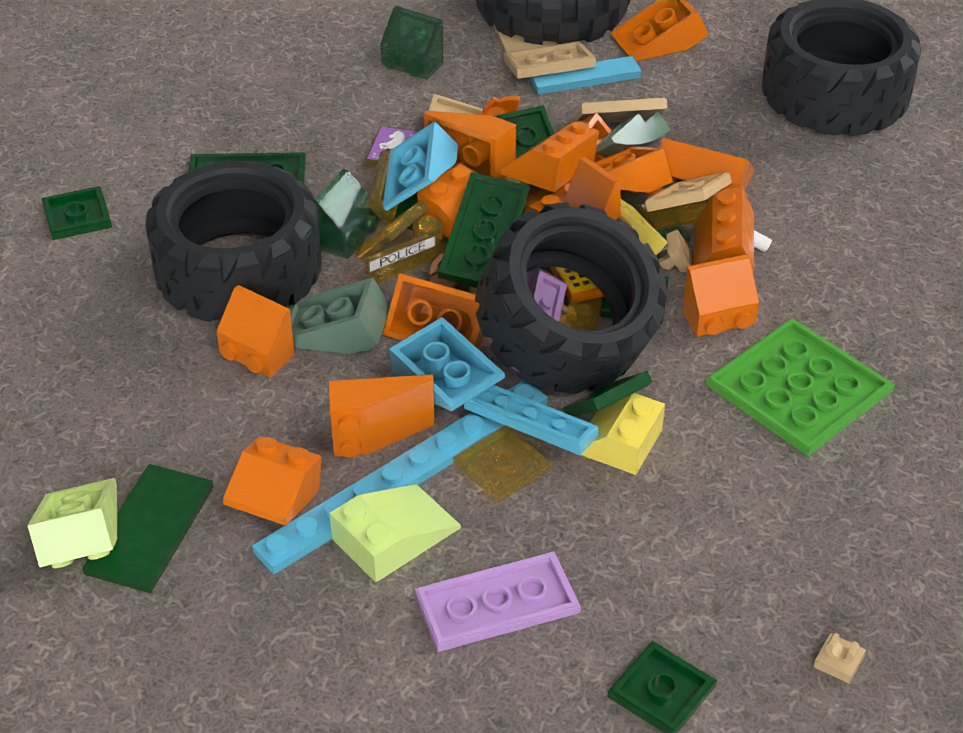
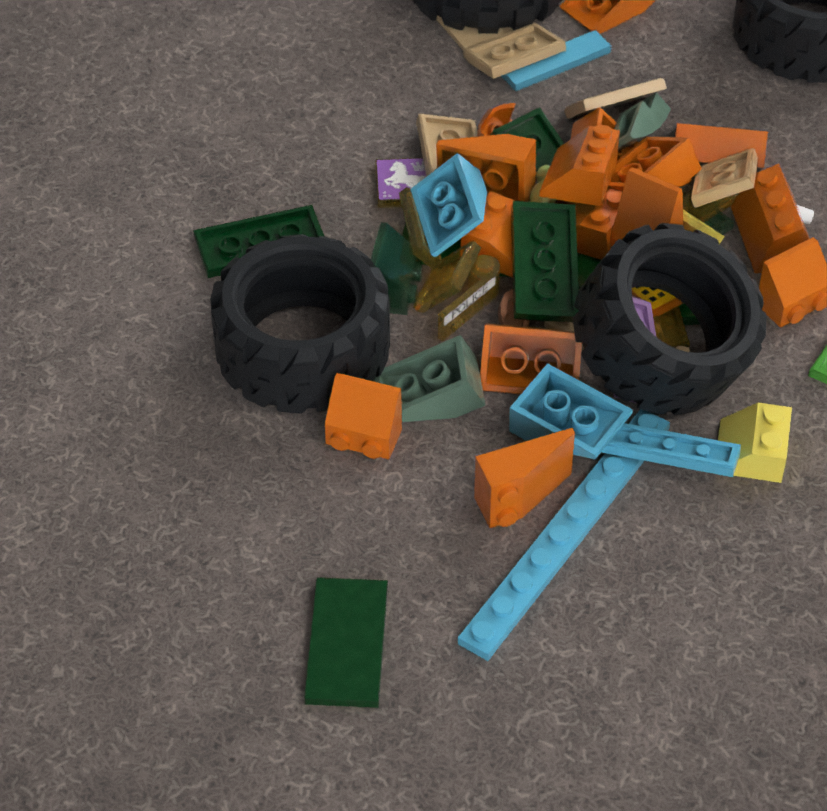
camera: 15 degrees left, 5 degrees up
(75, 524) = (281, 654): yellowish green slope -> none
(76, 213) = (103, 320): dark green tile -> none
(273, 480) = (452, 567): orange slope -> none
(389, 528) = (580, 590): yellowish green slope -> none
(412, 43) = (372, 59): clear green slope -> none
(496, 601) = (708, 638): lavender tile -> none
(502, 463) = (654, 499): clear yellow tile -> none
(608, 394) = (731, 409): dark green tile -> none
(675, 253) = (731, 240): tan tile -> none

